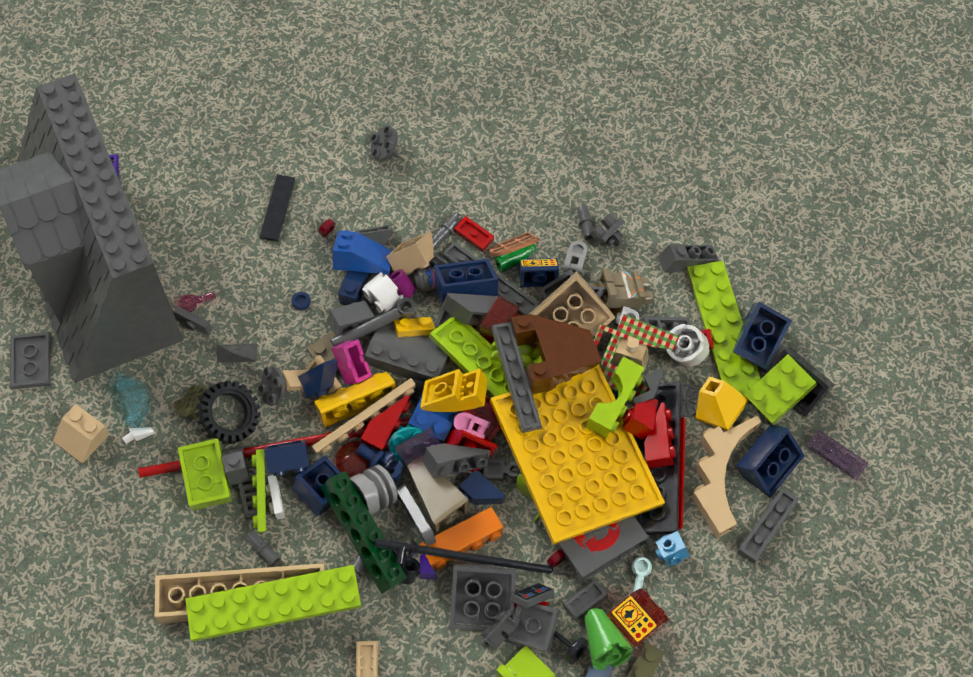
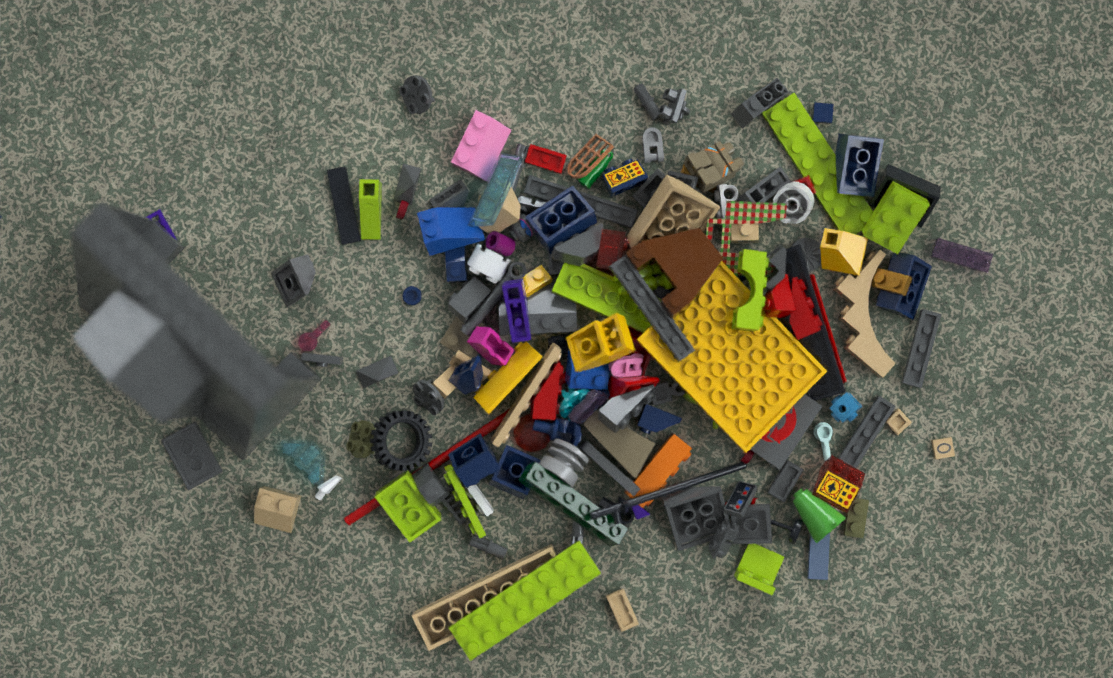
camera: 15 degrees left, 25 degrees up
(203, 245) = (294, 279): none -> flat silver slope
(299, 215) = (370, 208): none -> lime slope
(342, 210) = (407, 183): none -> dark grey slope
(390, 334) = (517, 310): none -> dark purple slope
(415, 234) = (495, 190): none -> clear light blue slope
(420, 202) = (481, 146): none -> bright pink slope
(687, 582) = (866, 431): none -> dark grey plate
(721, 587) = (898, 421): none -> tan tile
(744, 287) = (822, 113): none -> dark blue tile
(757, 445) = (891, 281): none -> pearl gold plate
(760, 630) = (943, 448): none -> tan tile

